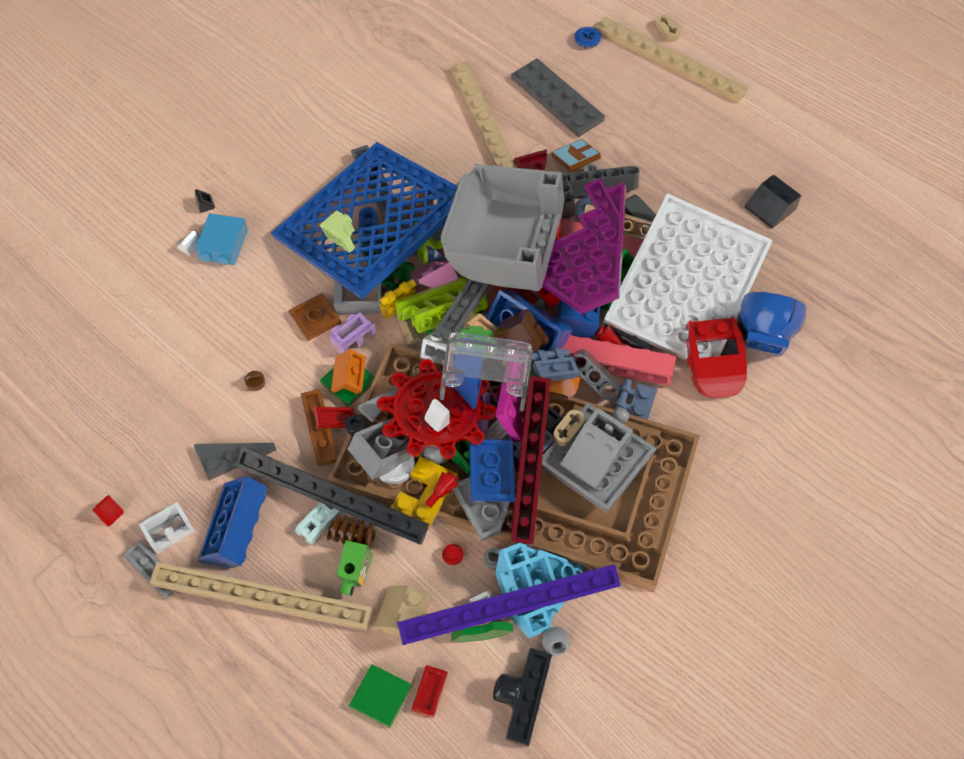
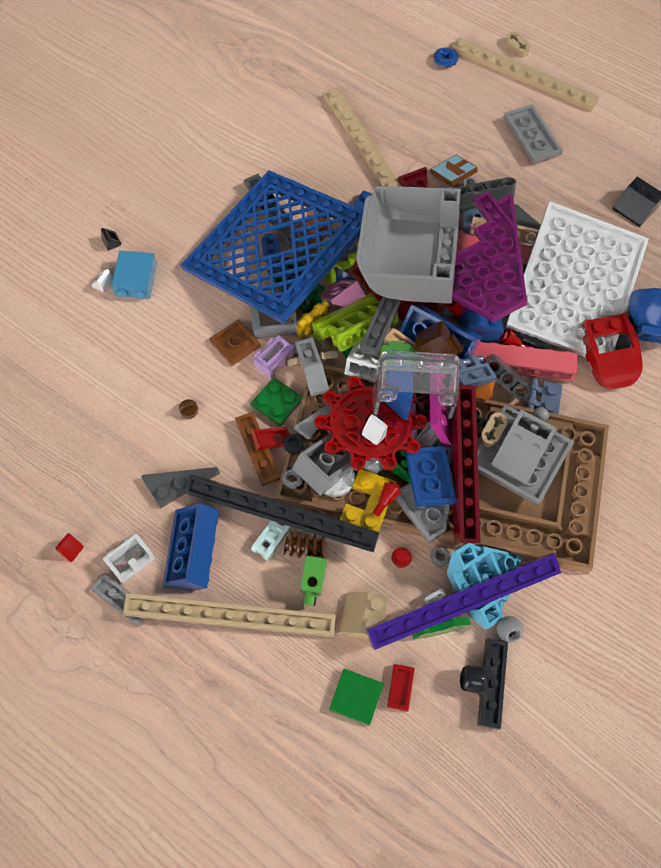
camera: 10 degrees left, 5 degrees up
(339, 230) = (249, 257): yellowish green arch -> none
(343, 457) = (287, 475): none -> light grey plate
(348, 371) = (278, 393): orange panel -> none
(387, 346) = (312, 366): none -> light grey slope
(397, 338) = (323, 356): none -> tan tile
(558, 97) = (427, 116): dark grey plate -> none
(668, 122) = (532, 134): none -> light grey plate

